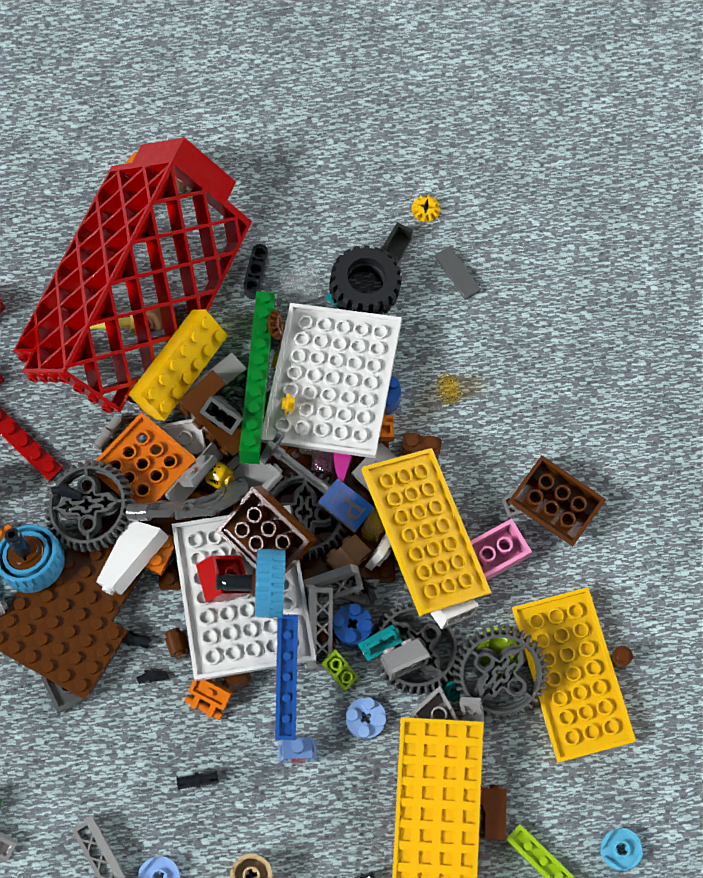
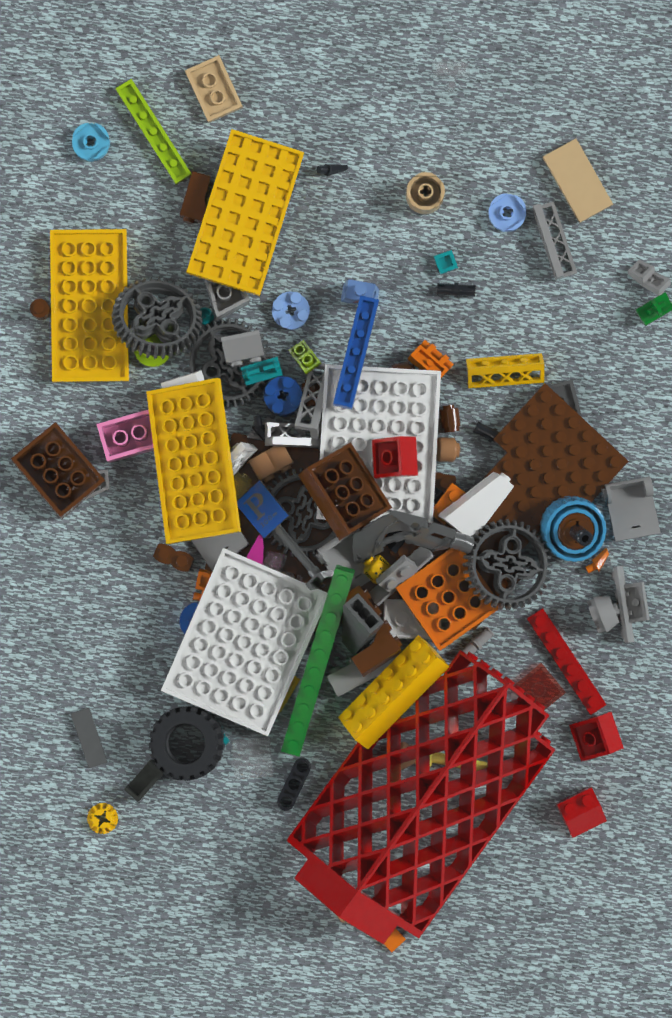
camera: 165 degrees left, 15 degrees up
(39, 405) = (541, 686): none -> clear red tile
(66, 491) = (526, 579): black bar -> none
(129, 710) = (505, 366): none -> yellow fence
(152, 676) = (478, 394): black bar -> none
(173, 611) = (447, 449): none -> medium nougat head
(214, 807) = (445, 262): none -> teal plate
(265, 583) = (356, 434): dark azure wheel -> none
(275, 324) = (288, 710): reddish brown gear -> none
(287, 403) = (295, 621): yellow plate -> none
(448, 389) = (131, 612): clear yellow brick -> none
(472, 710) = (192, 287): light grey slope -> none

